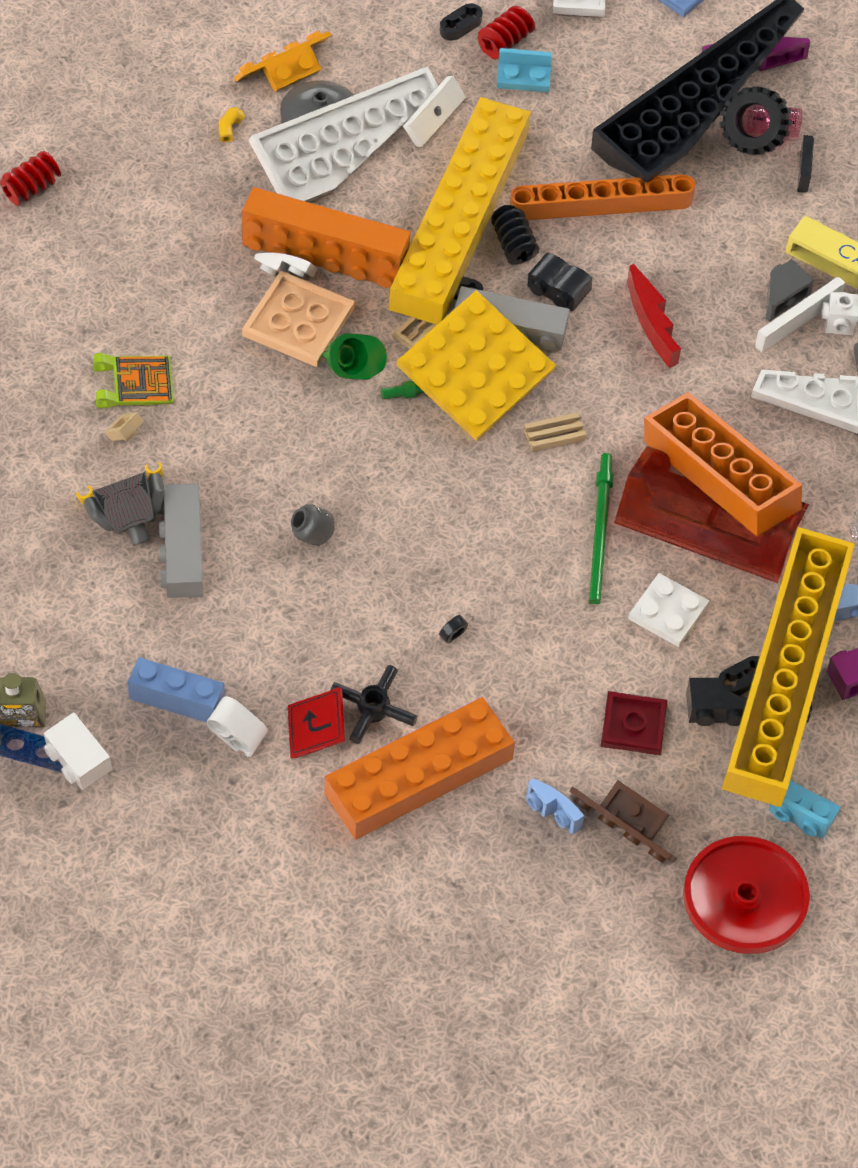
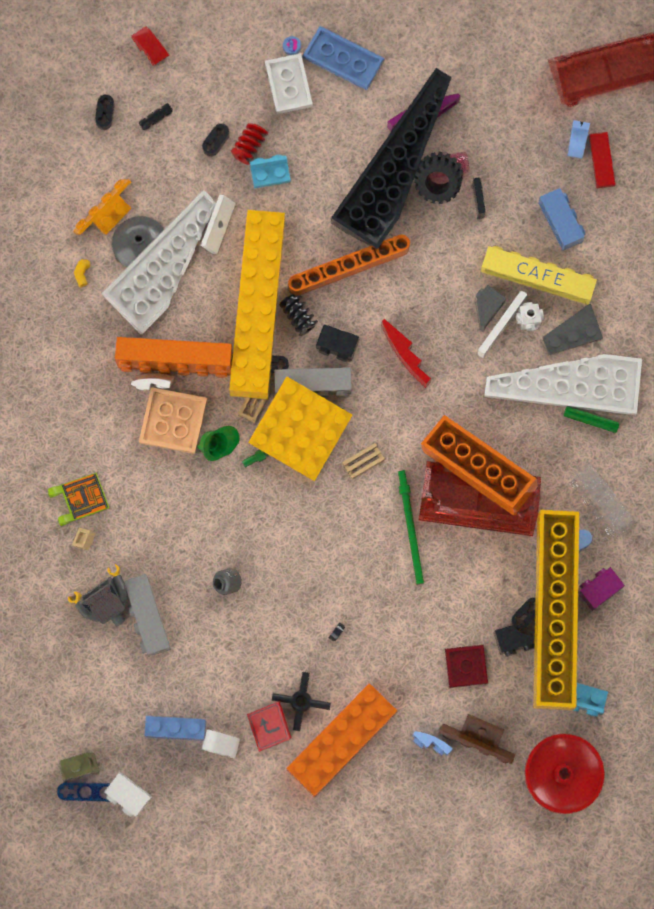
camera: 10 degrees left, 20 degrees up
(668, 609) = (468, 576): white plate -> none

